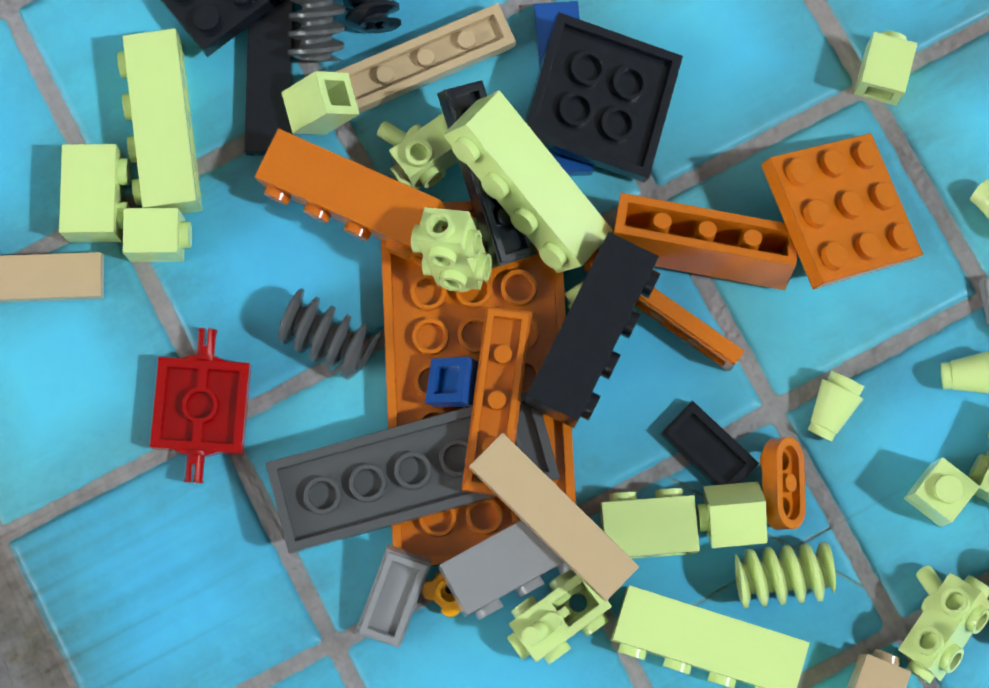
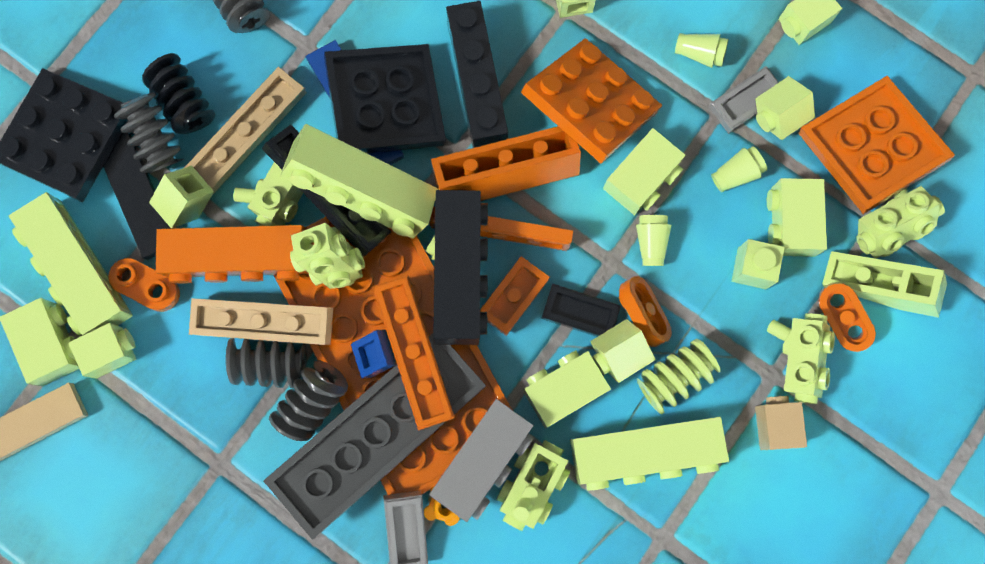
camera: 30 degrees left, 0 degrees up
(200, 406) = (196, 460): red plate -> none
(230, 181) = (142, 283): none -> orange plate
(343, 285) = (261, 321): none -> tan plate
(355, 402) = (309, 401): none -> dark grey piece
(553, 517) = (496, 418): tan tile -> none
(642, 393) = (514, 295): none -> orange plate
(721, 118) = (476, 73): none -> black brick
(862, 323) = (644, 171): none -> yellowish green brick

